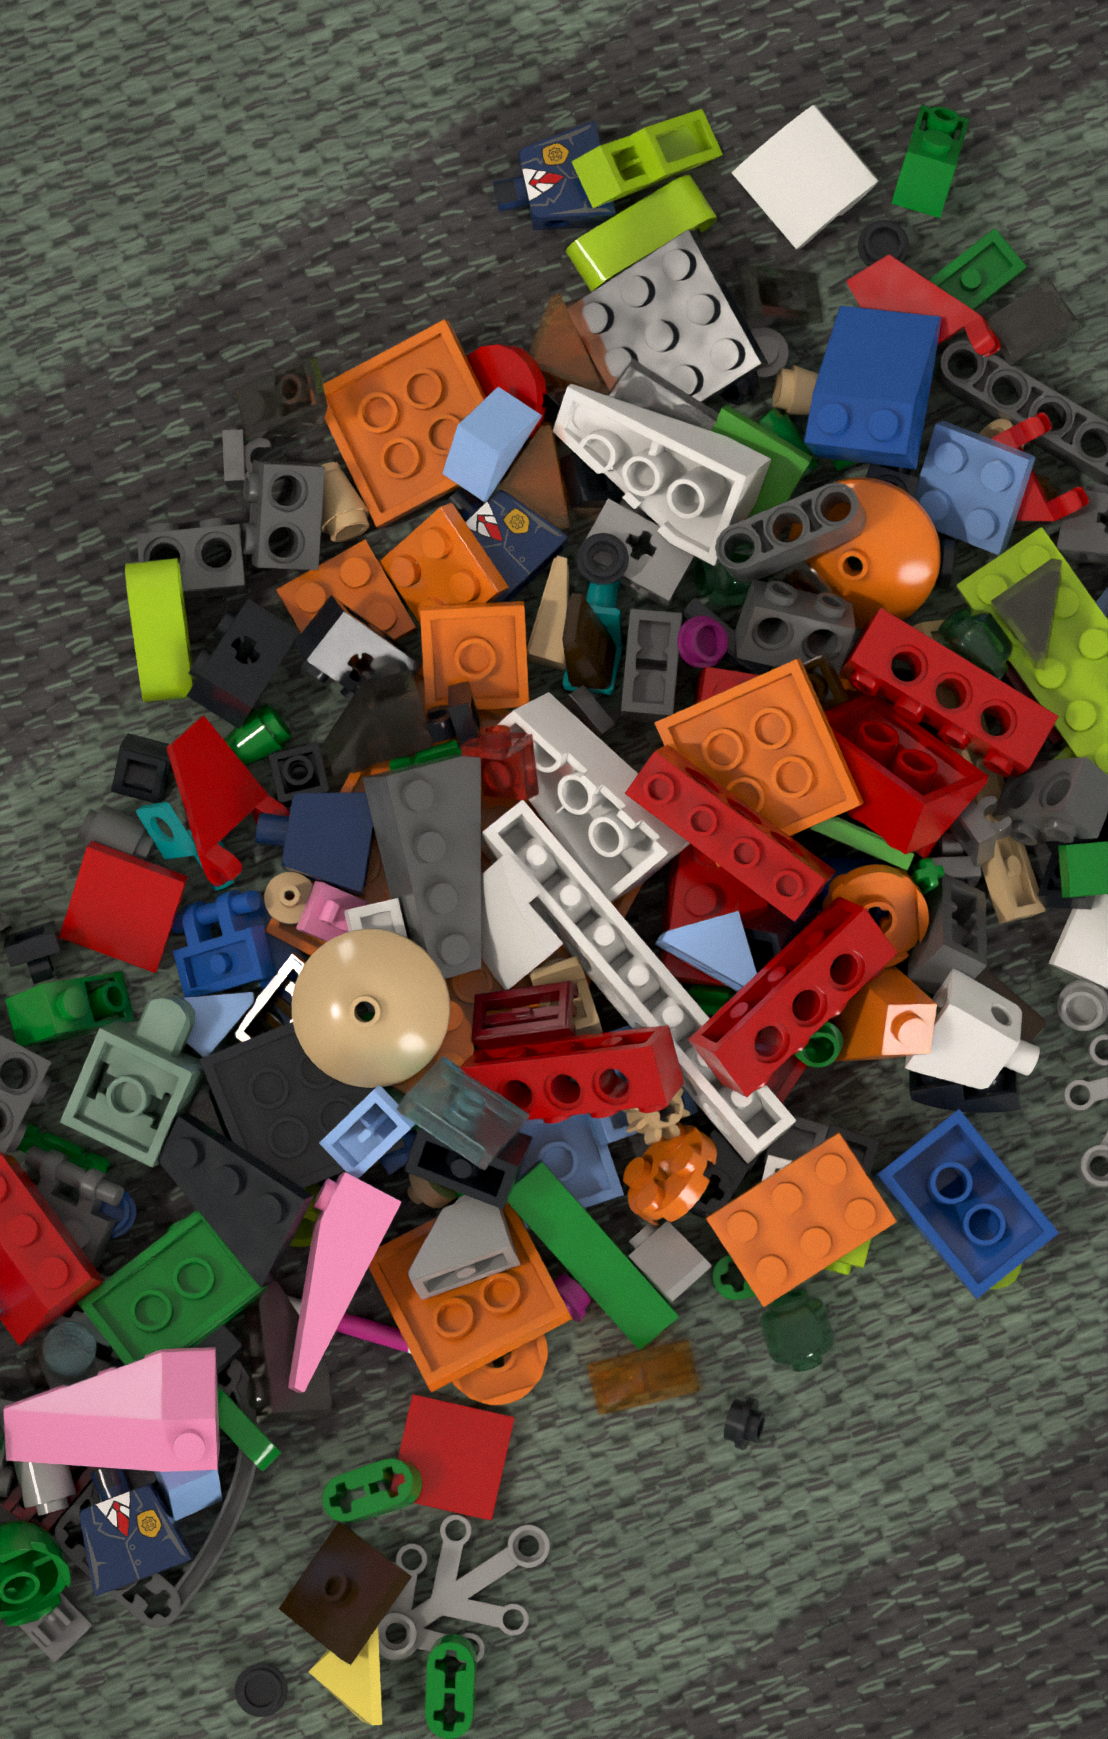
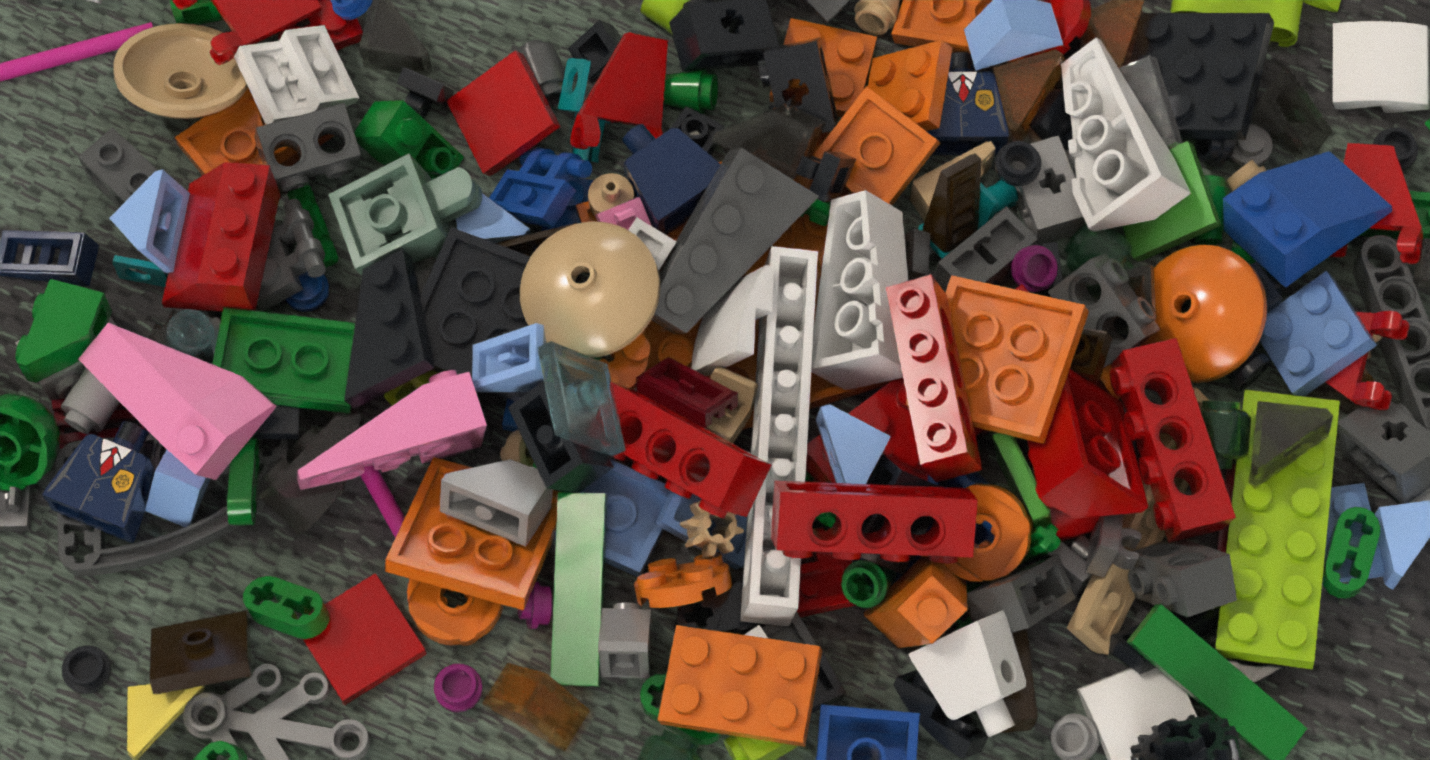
camera: 45 degrees right, 15 degrees down
(506, 762) = (831, 219): clear red bracket -> none
(569, 1421) = (458, 687): none -> magenta plate
(765, 529) = (1160, 242): dark grey beam -> none

